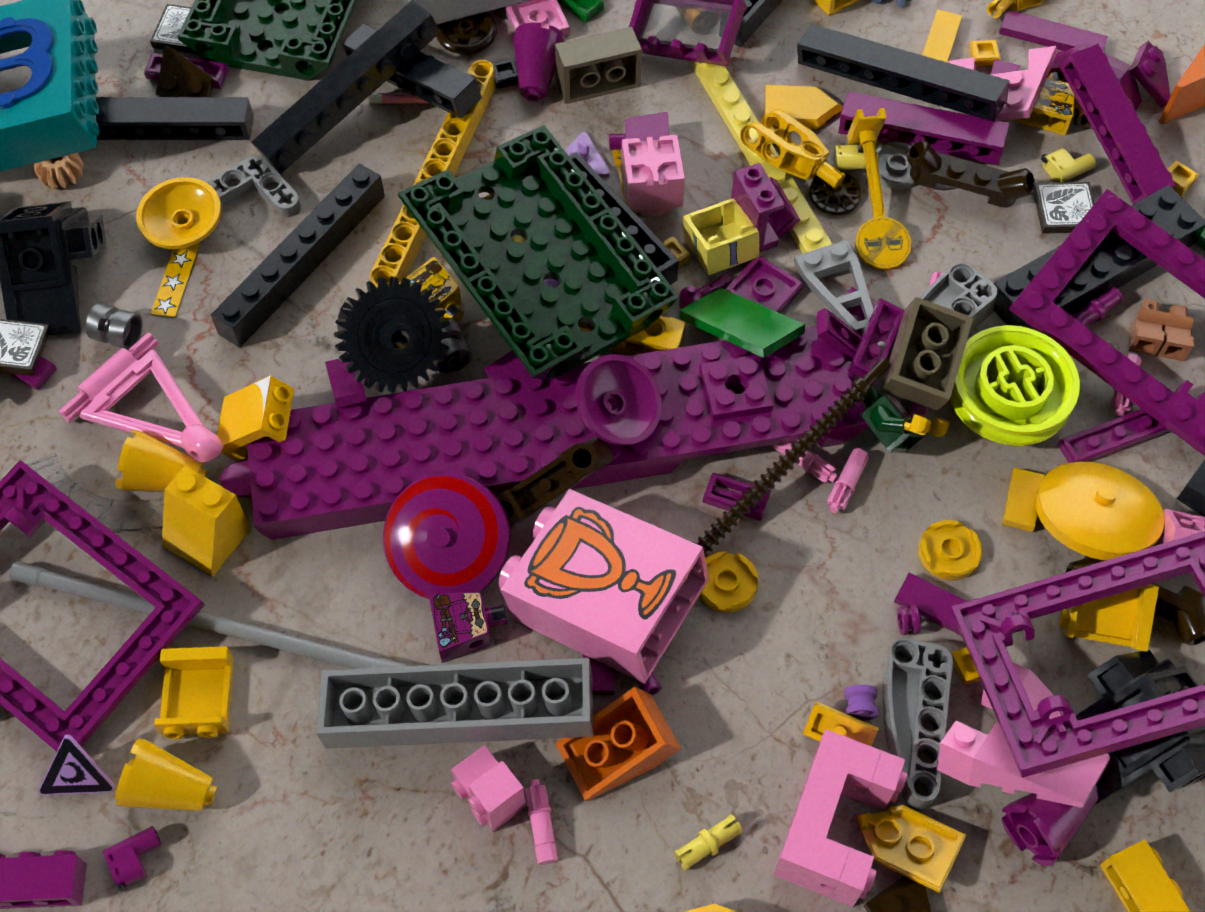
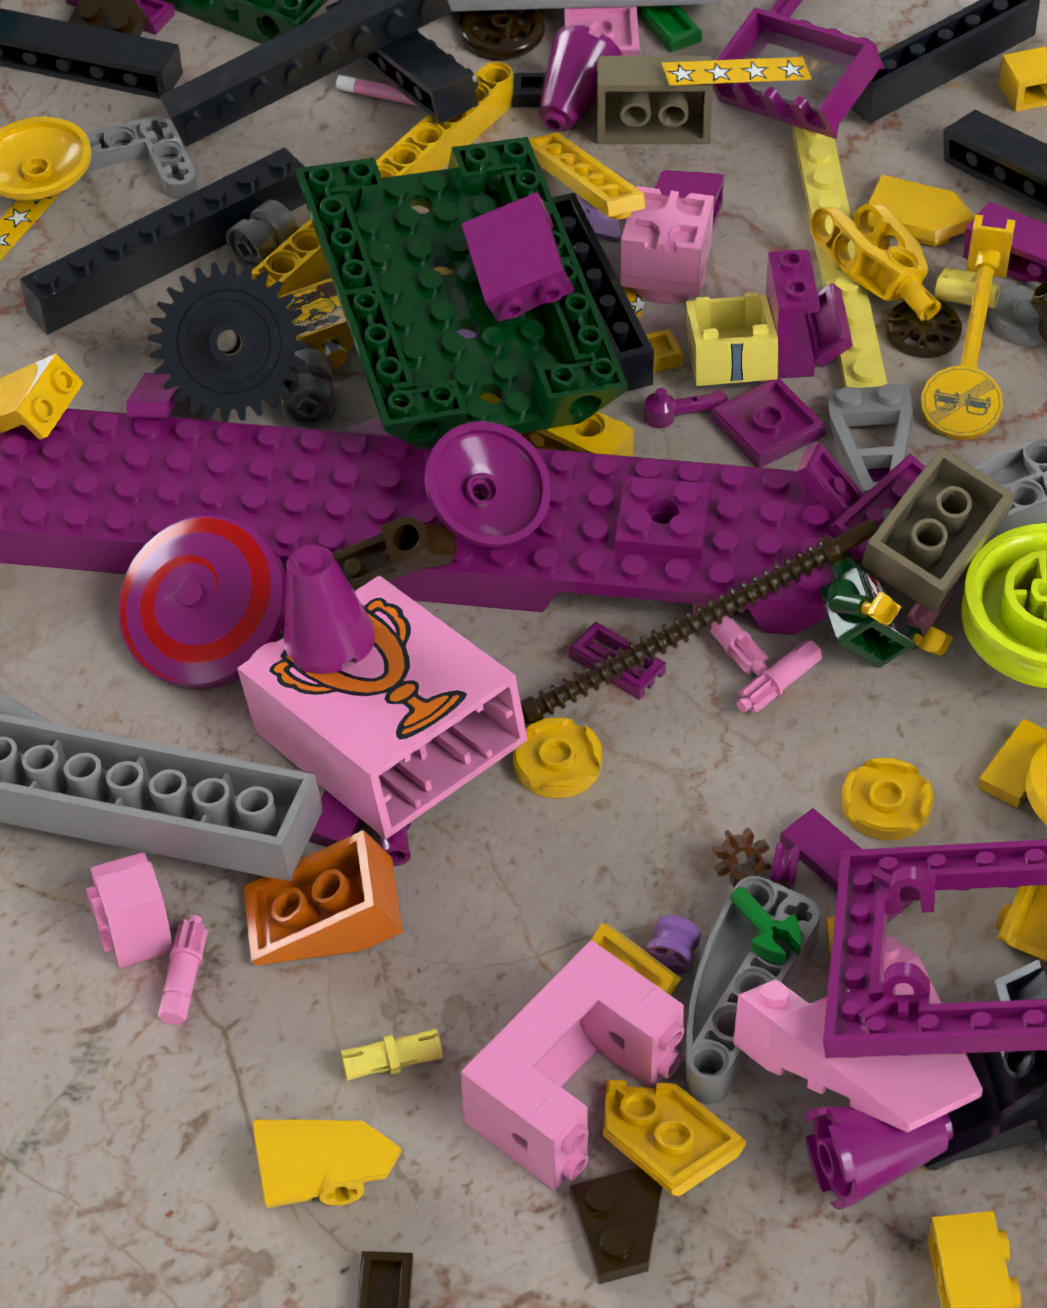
camera: 20 degrees right, 10 degrees down
(368, 234) = (264, 232): none -> flat silver wheel
(463, 623) = (185, 709): torso -> none
(554, 540) = (323, 614): none -> magenta cone
(576, 221) = (516, 257): none -> magenta panel
(580, 137) = (587, 176): none -> yellow plate
(652, 34) = (736, 71): none -> yellow sticker
(742, 322) = (710, 445): green tile -> none
(880, 624) = (736, 844): none -> reddish brown gear
(926, 677) = (768, 928): none -> green bar

